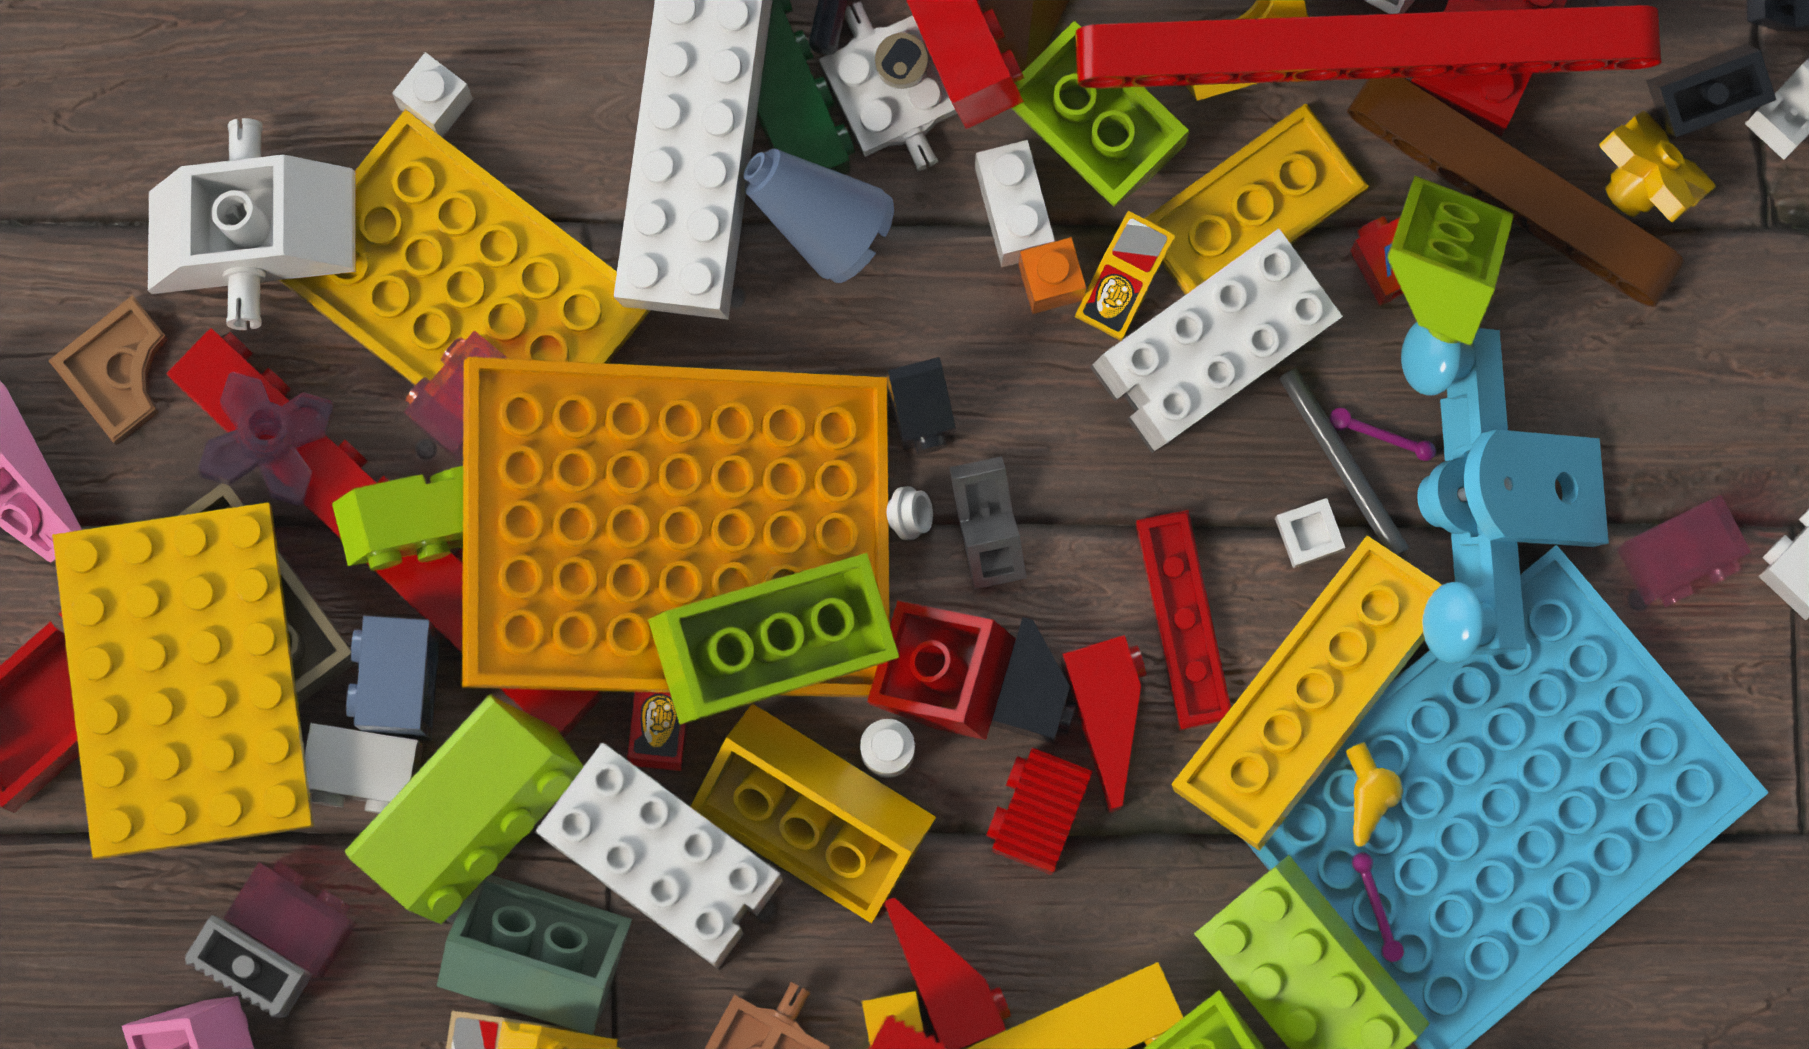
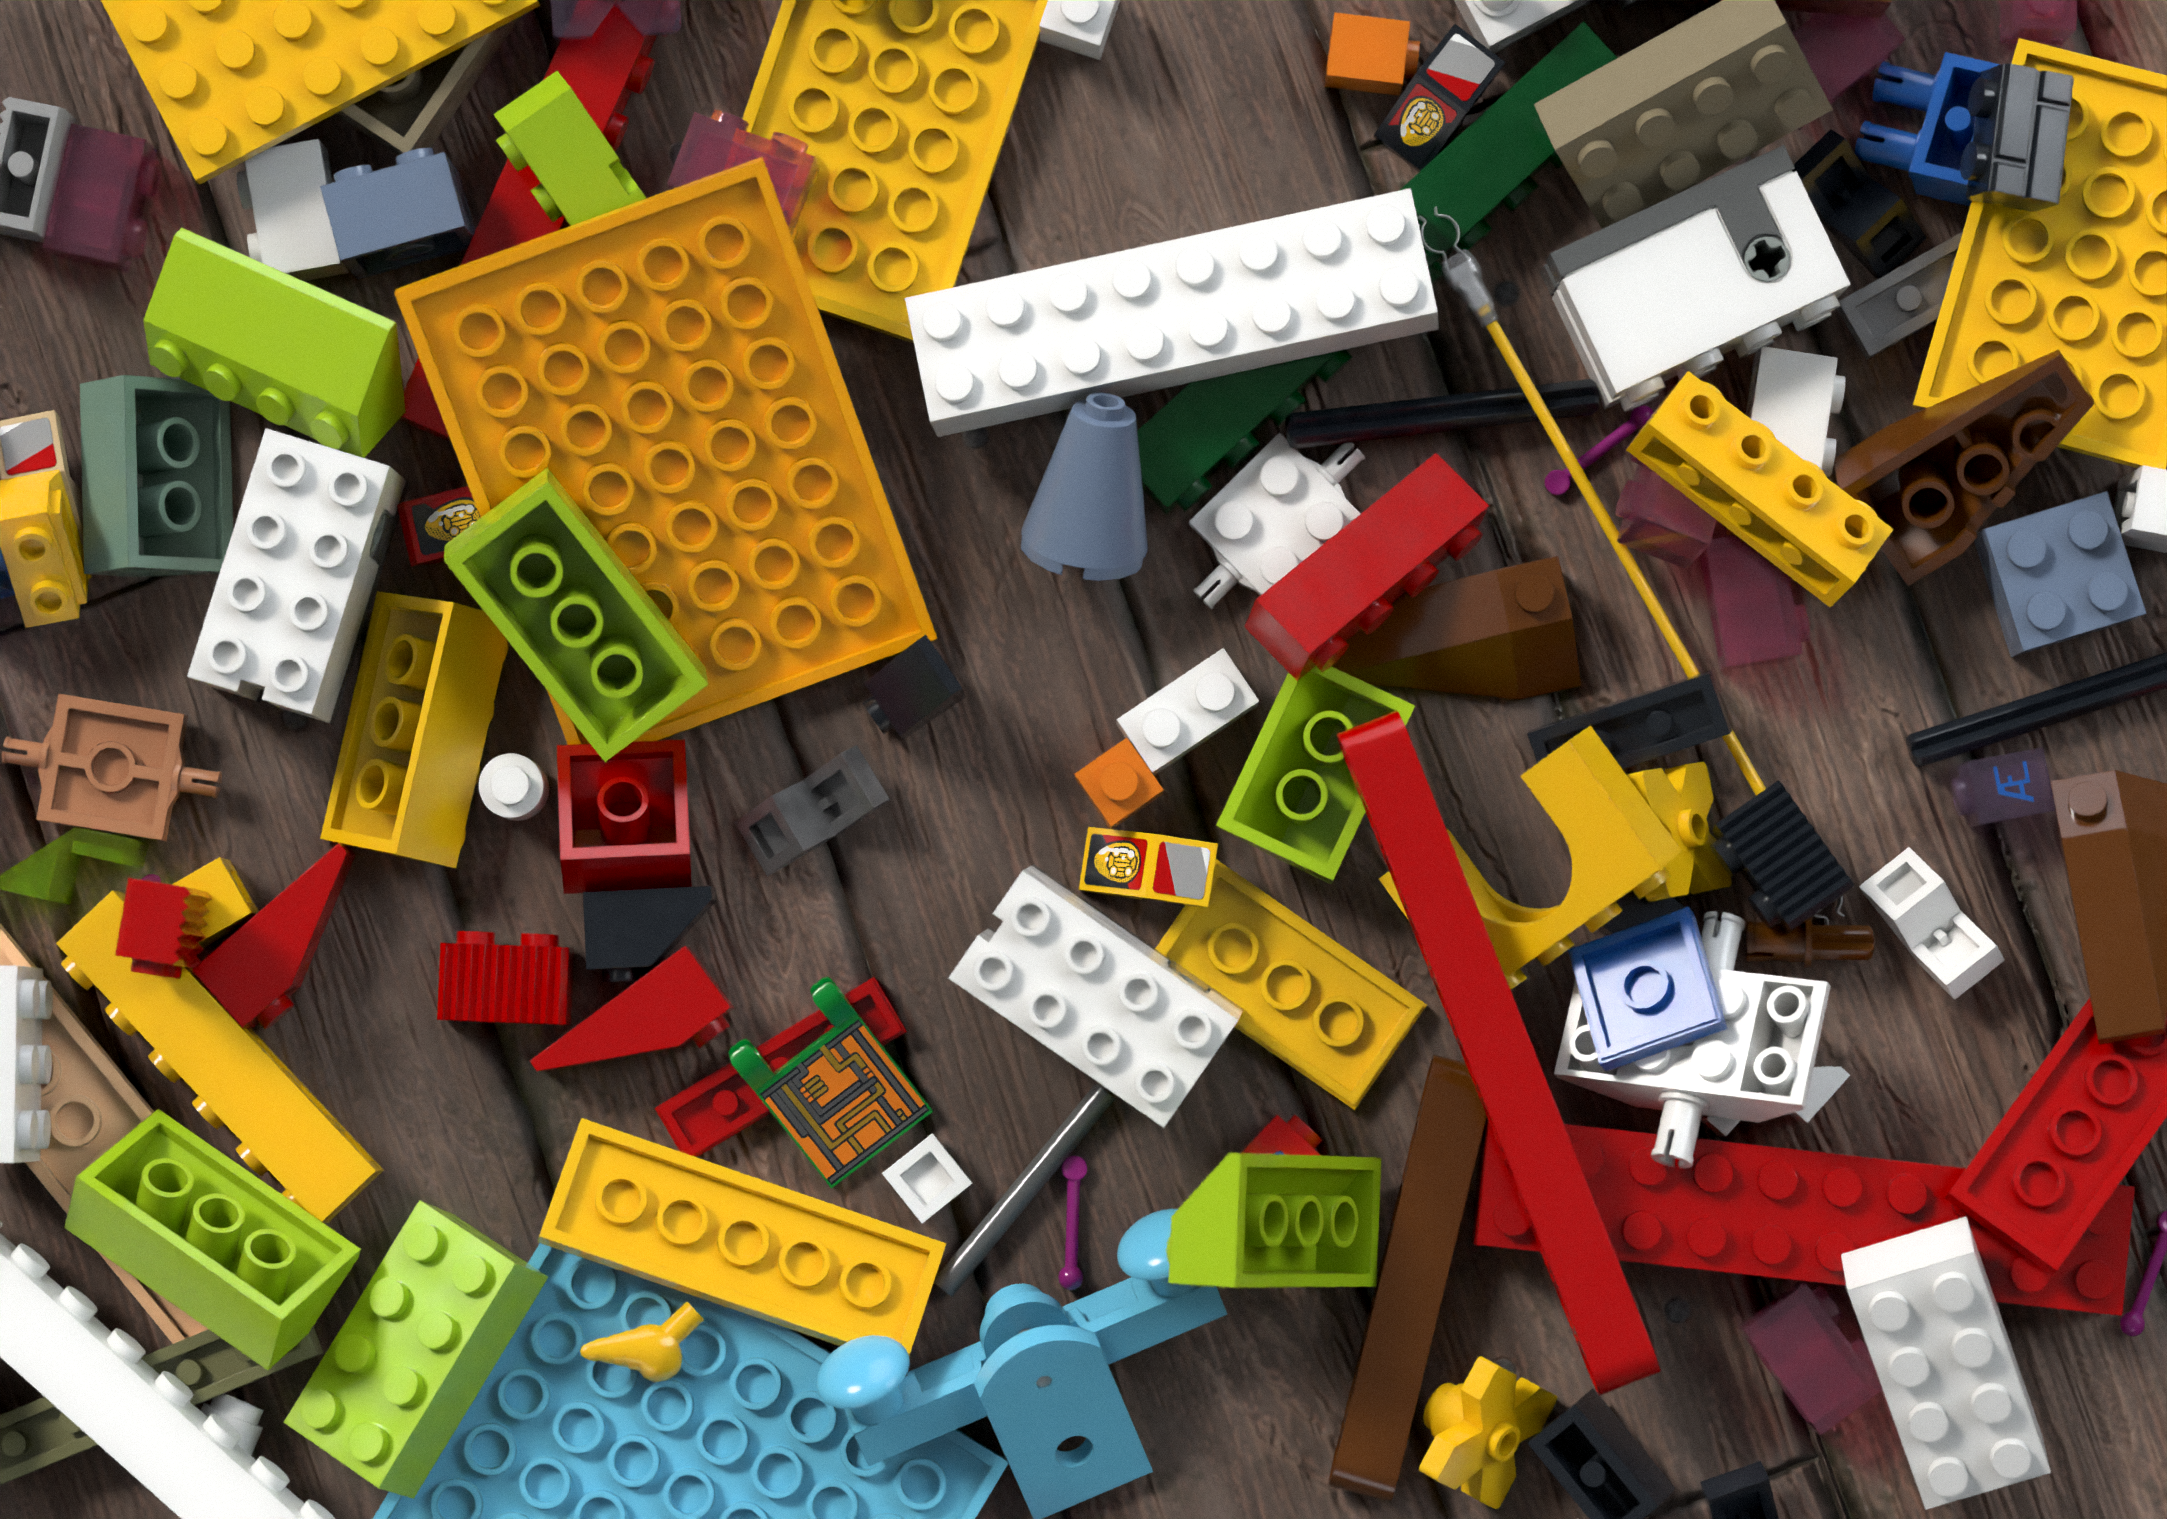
camera: 75 degrees right, 5 degrees up
(901, 60) = (1303, 524): tile -> none
(909, 512) = (792, 719): white plate -> none
(1220, 579) = (839, 1094): none -> flag
(1391, 949) = (483, 1428): magenta hinge -> none

